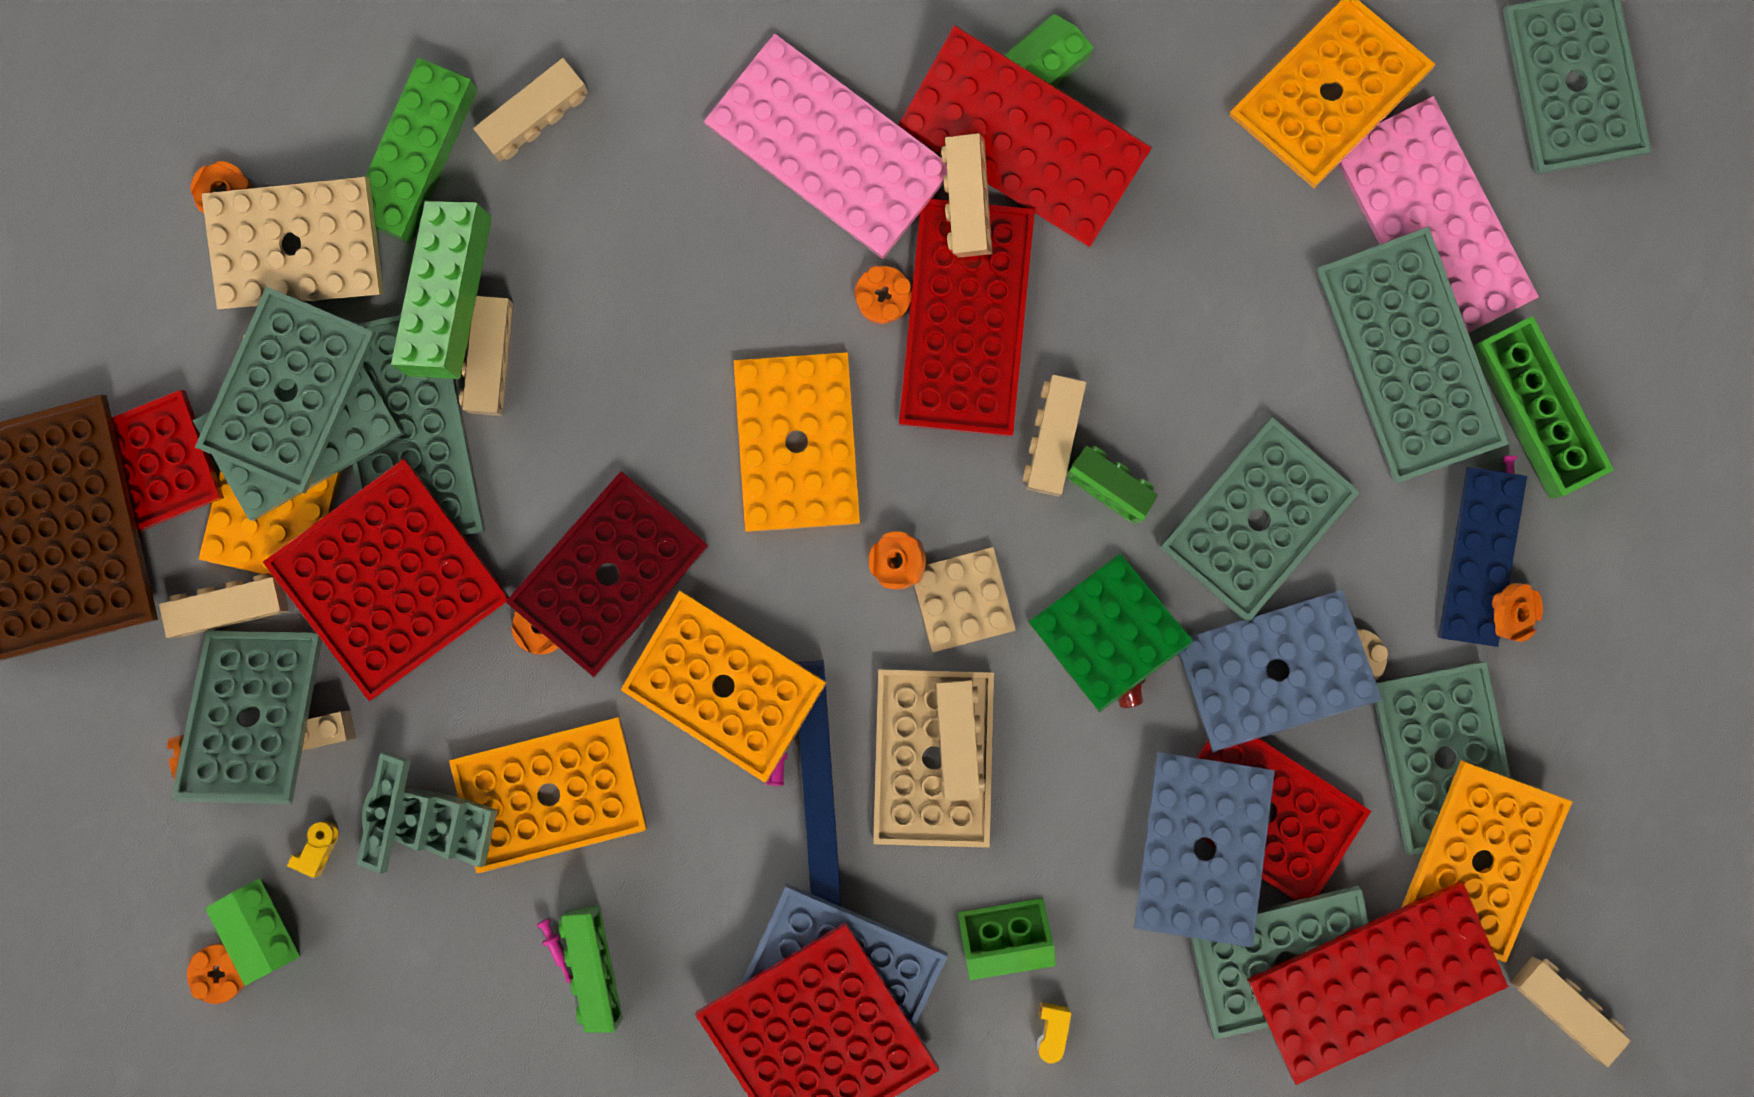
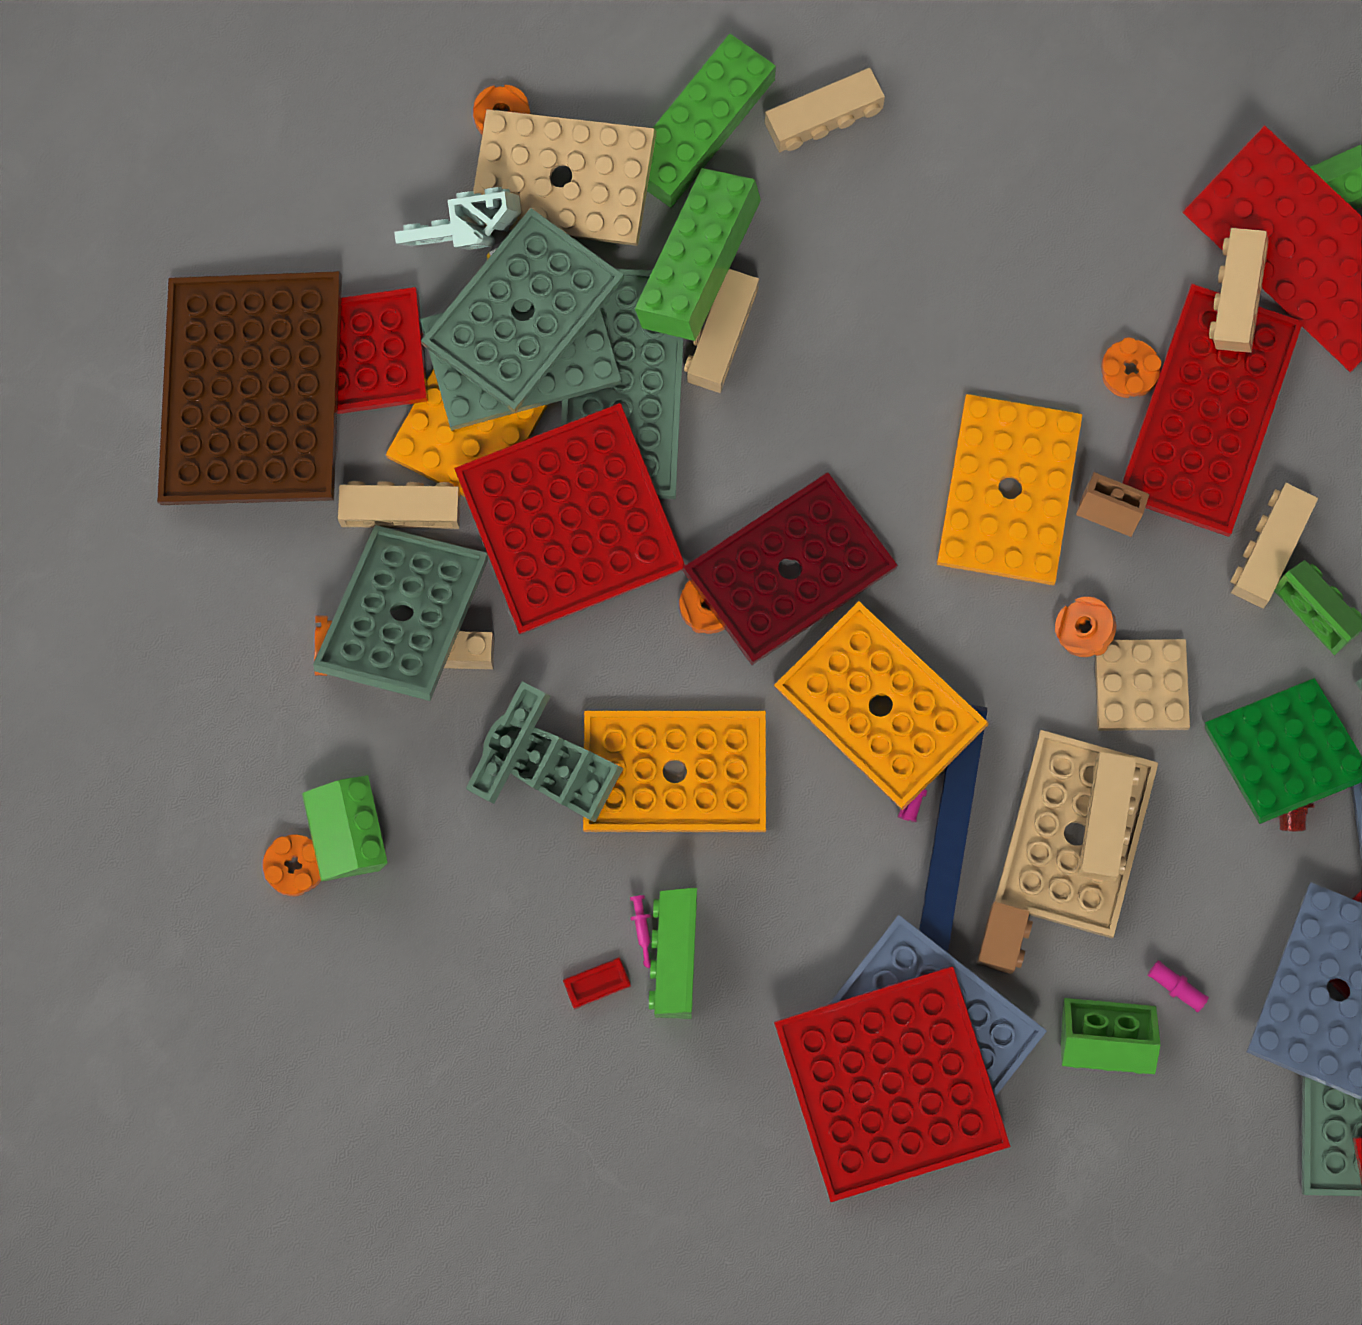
camera: 20 degrees right, 10 degrees down
(211, 313) = (495, 208): none -> light aqua piece
(321, 841) = (428, 766): yellow leg -> none
(527, 1010) = (596, 983): none -> red tile
(828, 145) = (1110, 213): bright pink plate -> none
(889, 875) = (1004, 937): none -> medium nougat brick
(895, 436) = (1112, 504): none -> medium nougat brick
(1053, 1041) = (1138, 1144): yellow leg -> none
(1058, 876) = (1178, 986): none -> dark pink pin

